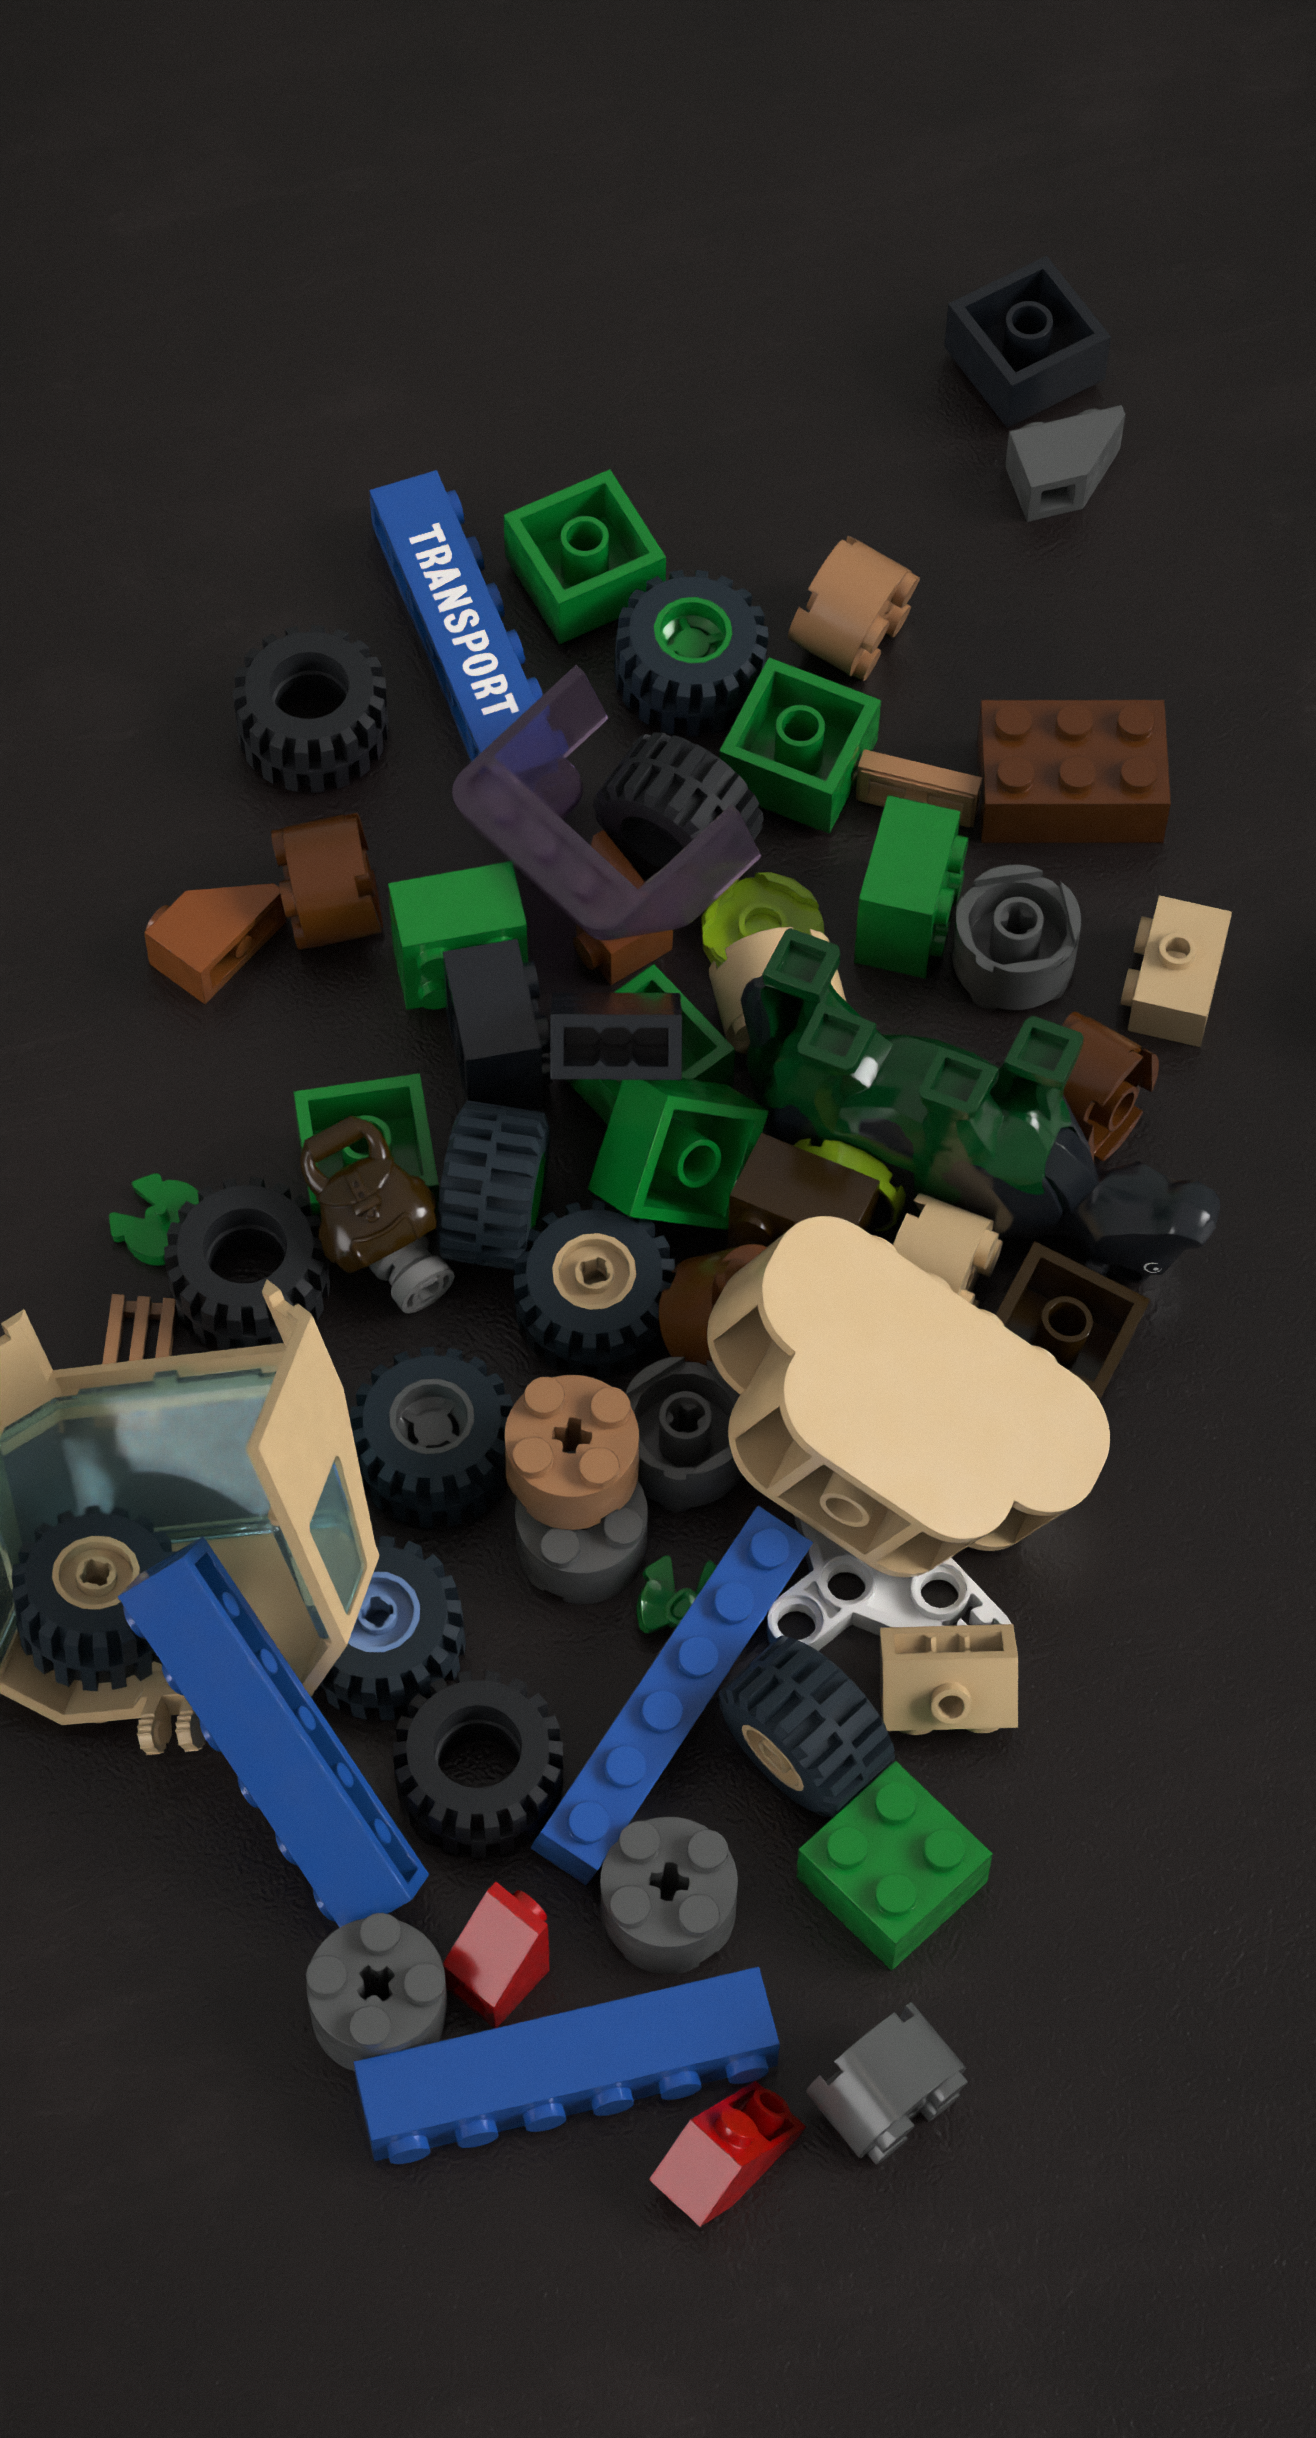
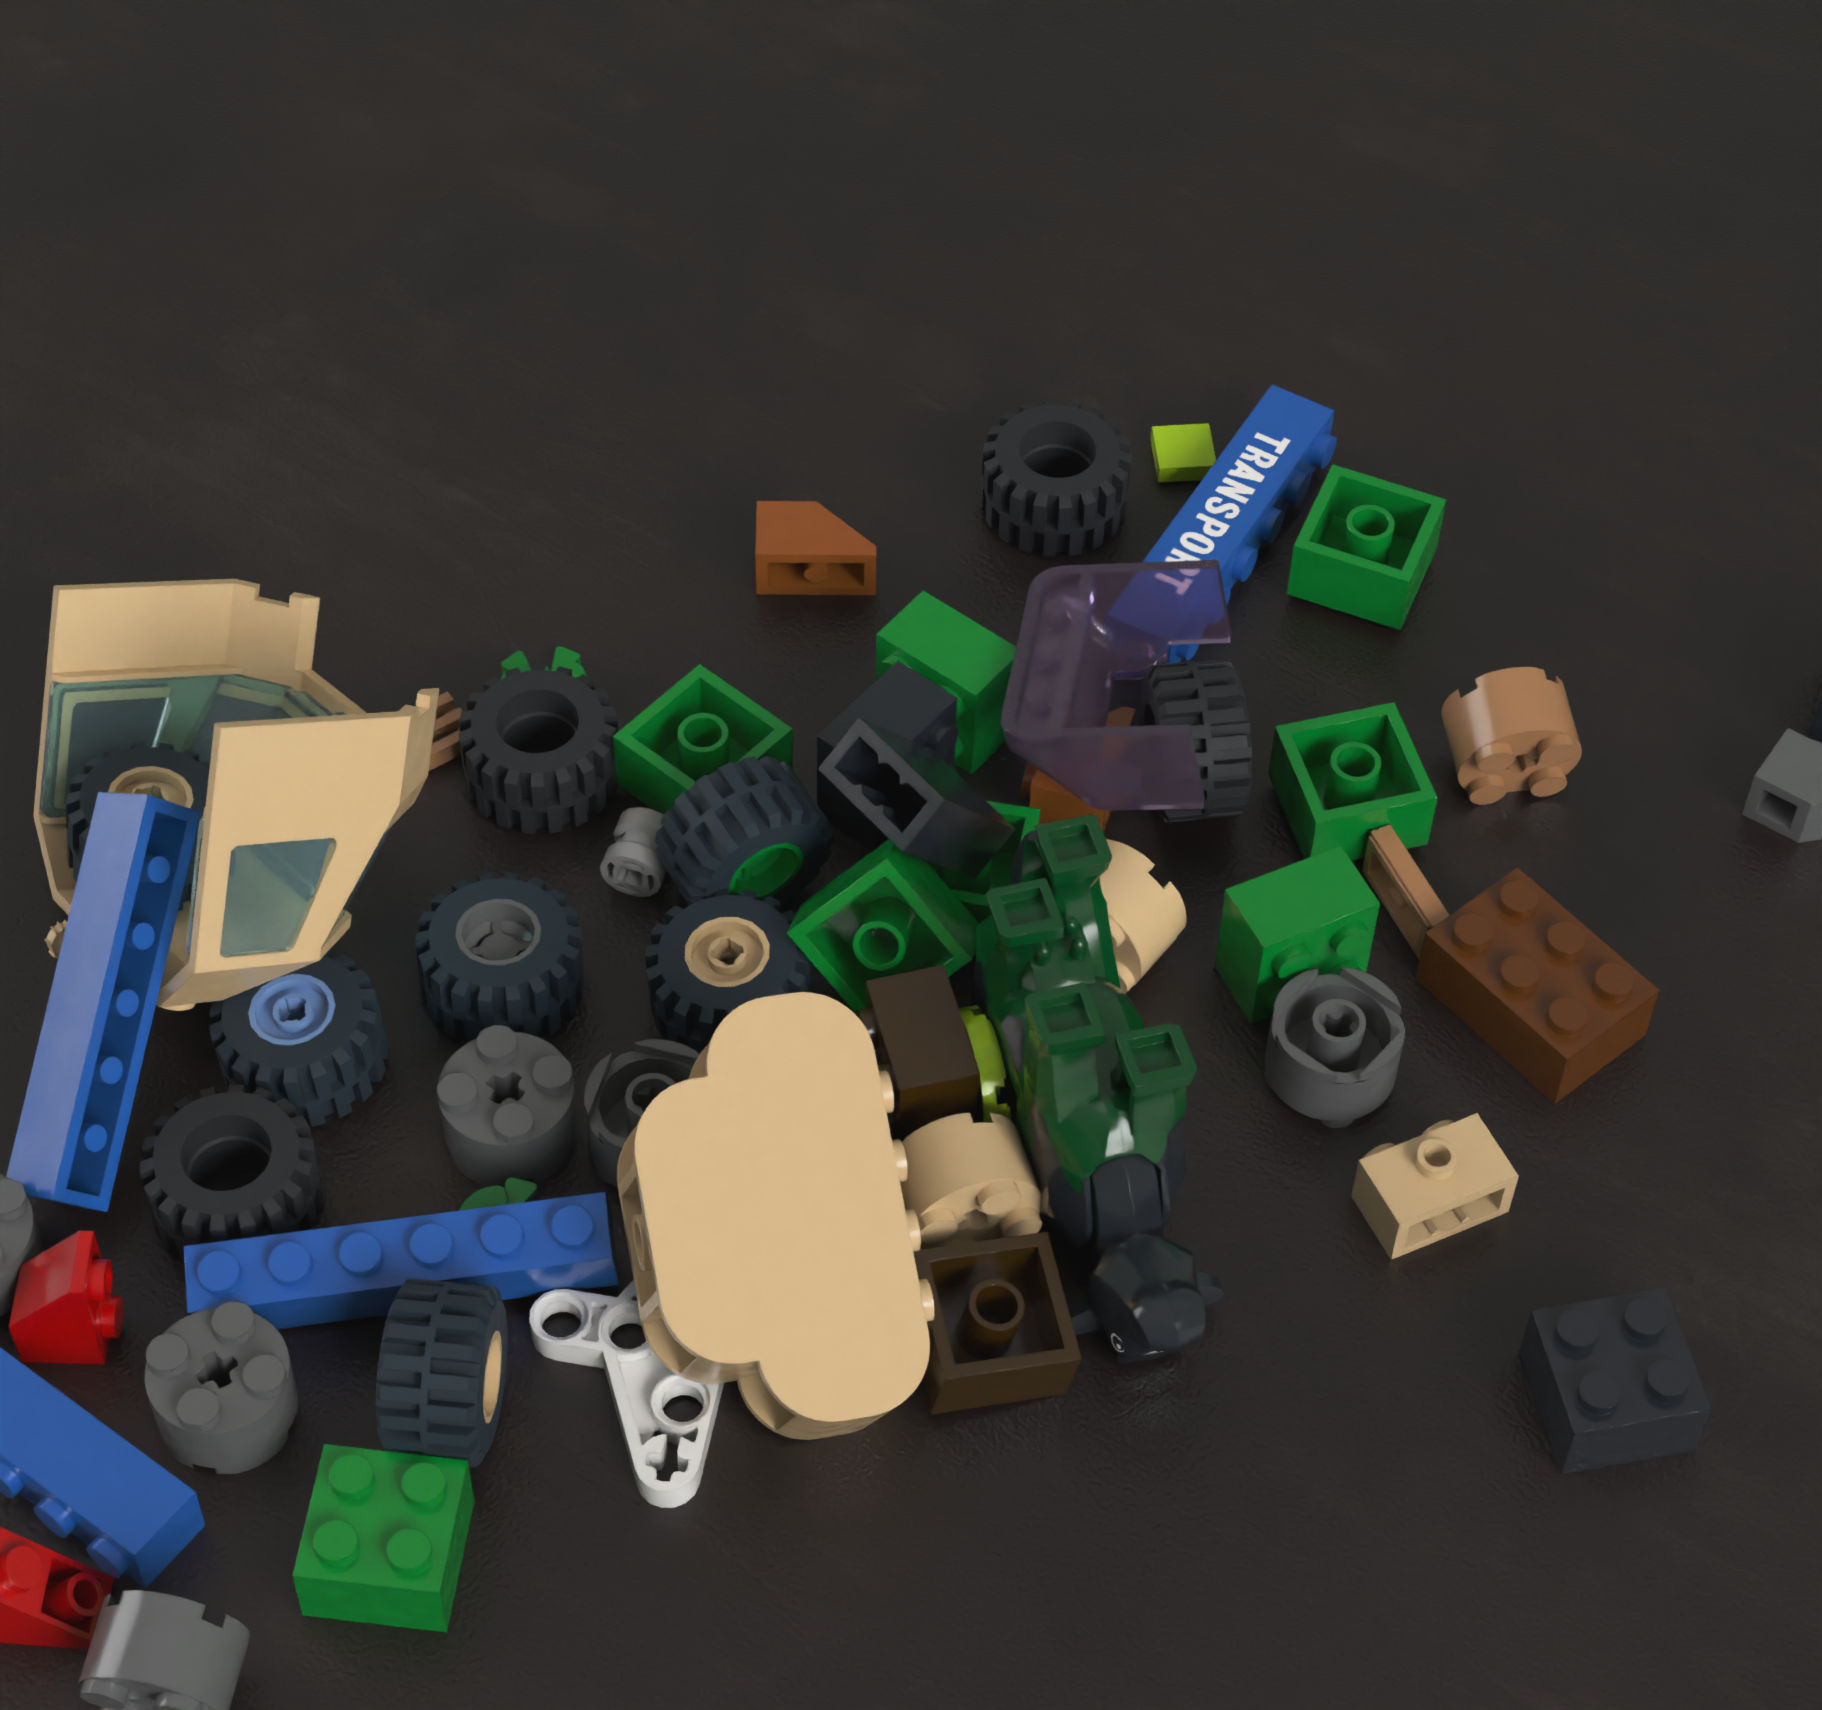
camera: 50 degrees right, 10 degrees down
(327, 881) = (908, 557): reddish brown brick -> none
(353, 602) = (1182, 452): none -> lime tile
(369, 1204) = (637, 762): dark brown piece -> none
(579, 1417) = (530, 1026): medium nougat brick -> none
(689, 651) = (1359, 654): black wheel -> none
(757, 906) = (1195, 870): lime tile -> none
(949, 1678) = (592, 1456): tan brick -> none
(1107, 1084) = (1245, 1186): reddish brown brick -> none

